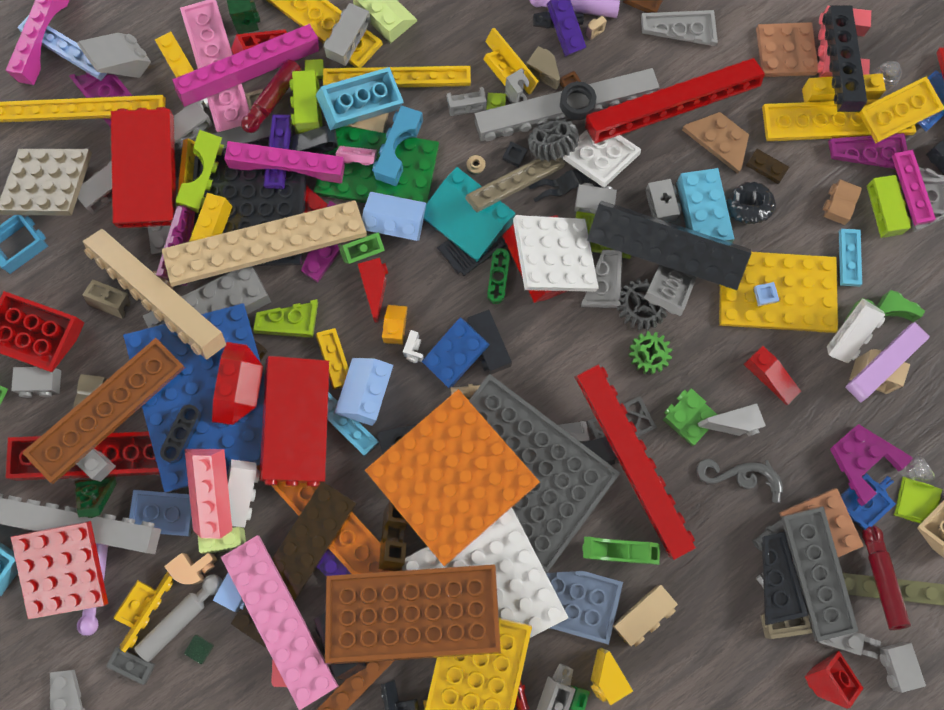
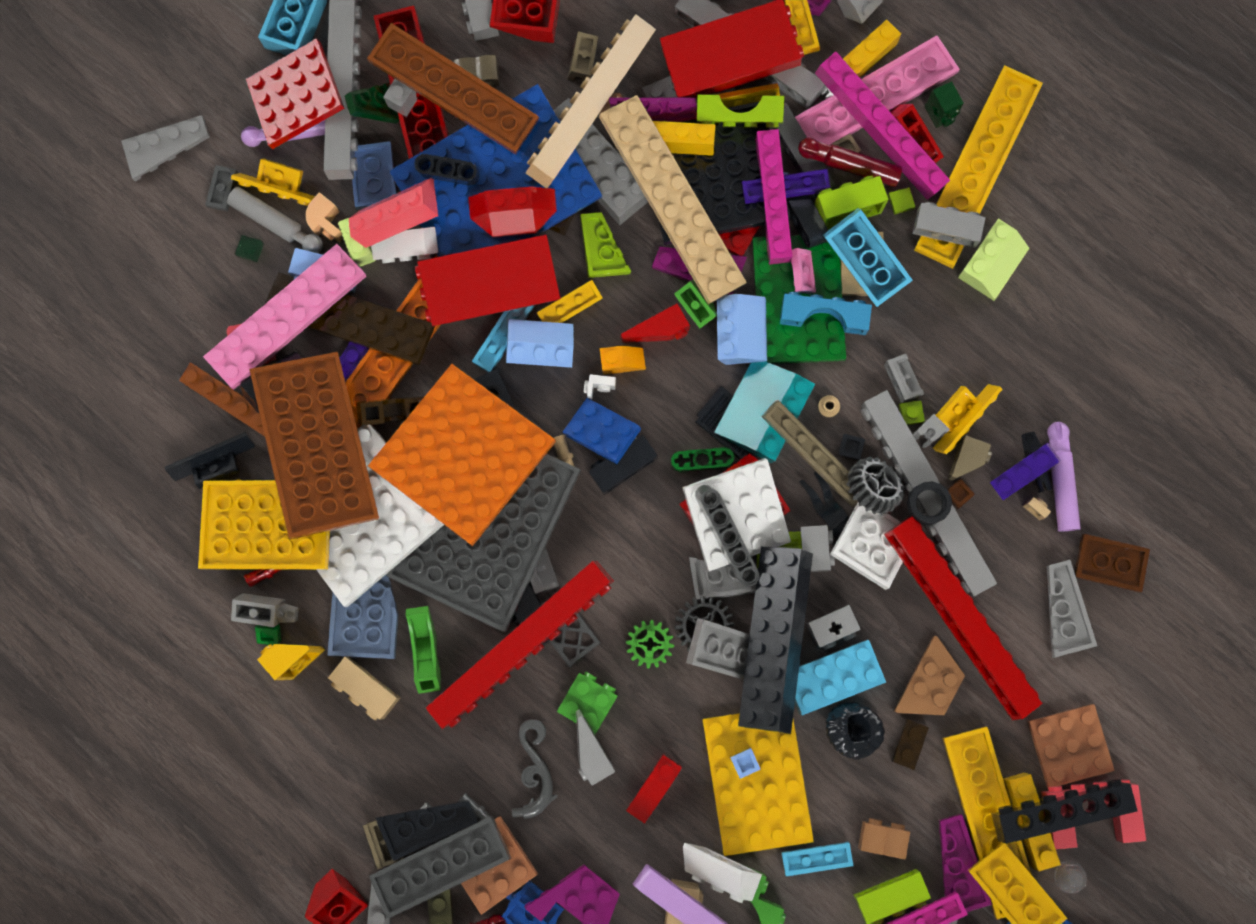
camera: 85 degrees right, 5 degrees up
(408, 76) = (915, 296): yellow plate -> none
(573, 261) = (735, 541): none -> dark grey beam

